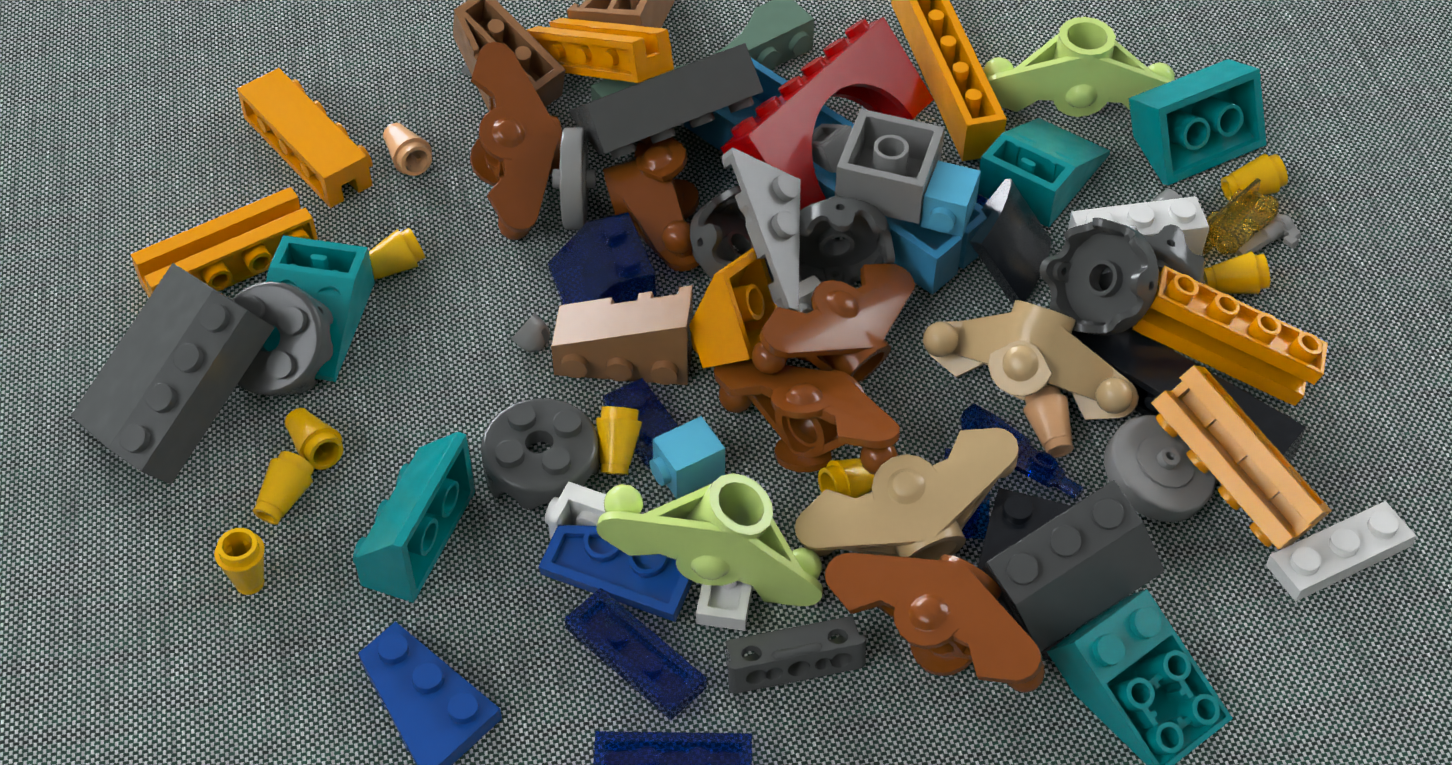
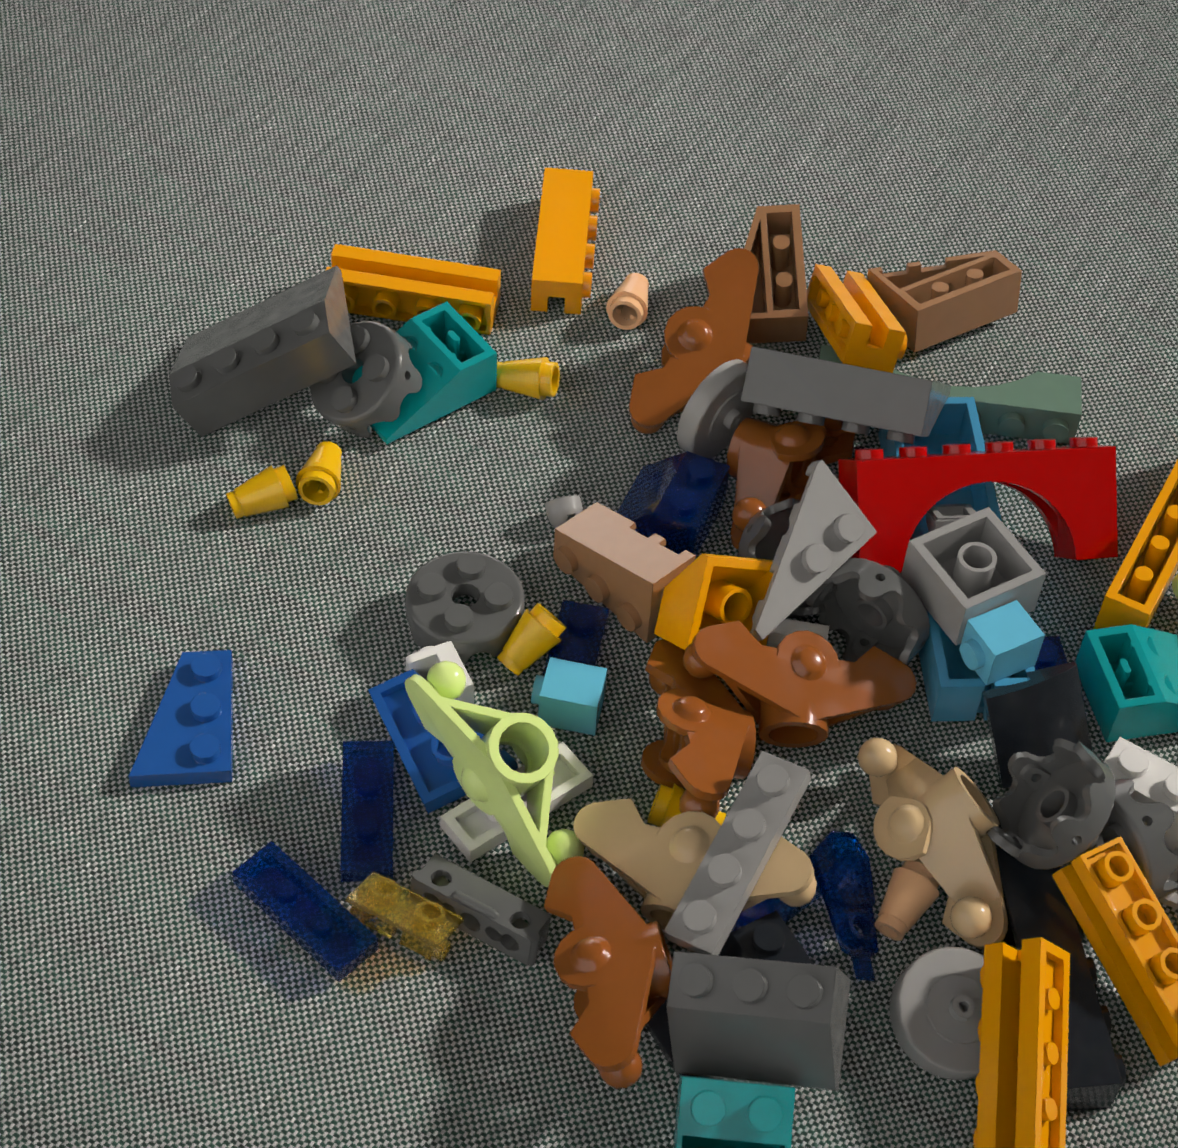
camera: 40 degrees right, 0 degrees up
(242, 559) = (172, 522): yellow cone -> none
(417, 519) = (322, 588): teal slope -> none
(771, 697) = (388, 906): none -> clear yellow hinge
(955, 464) = (738, 855): none -> light grey plate

